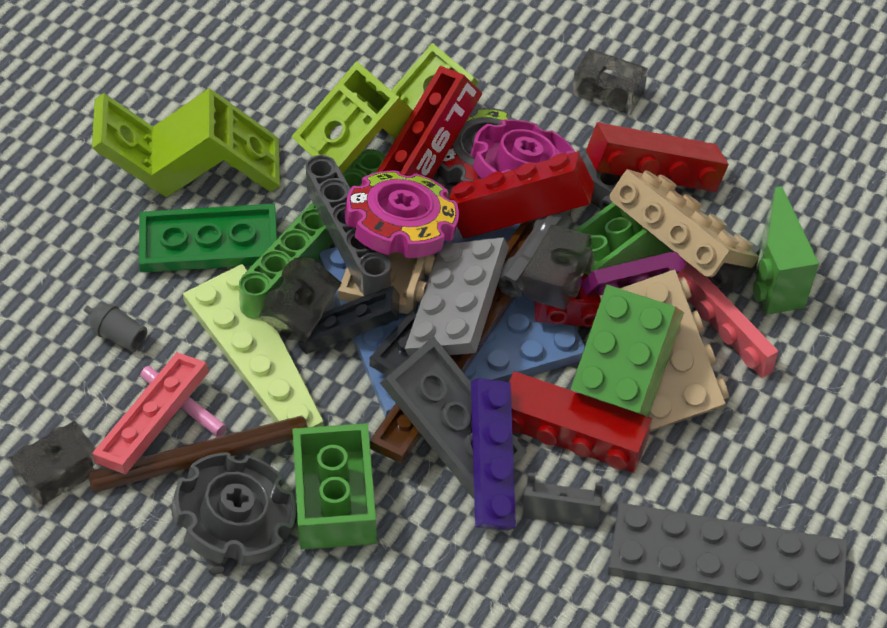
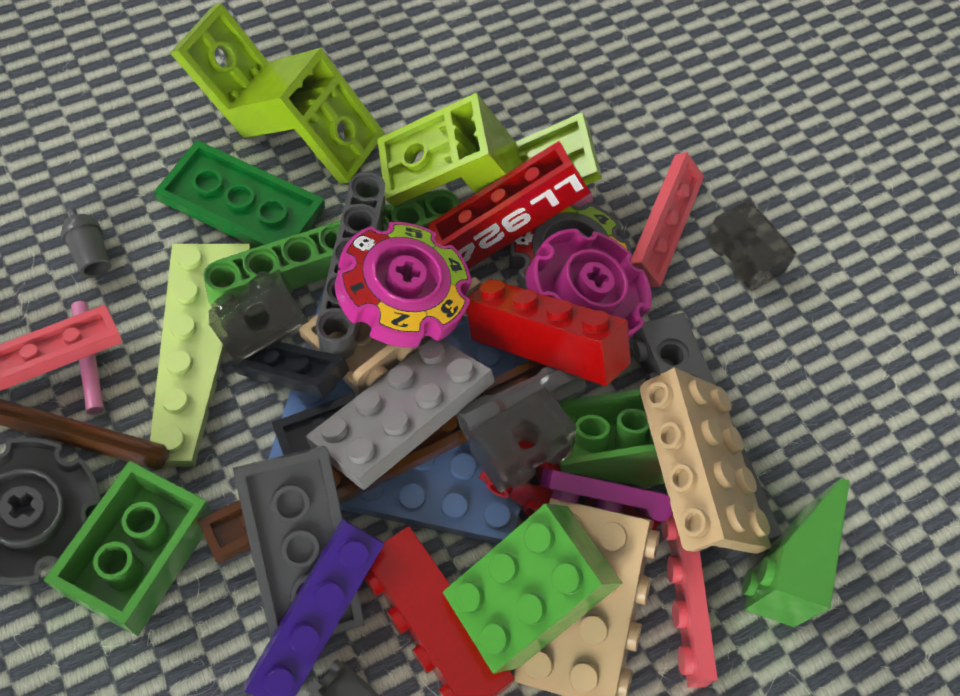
camera: 25 degrees right, 10 degrees up
(537, 87) = (667, 219): none -> coral plate
(679, 159) = (735, 361): red brick -> none

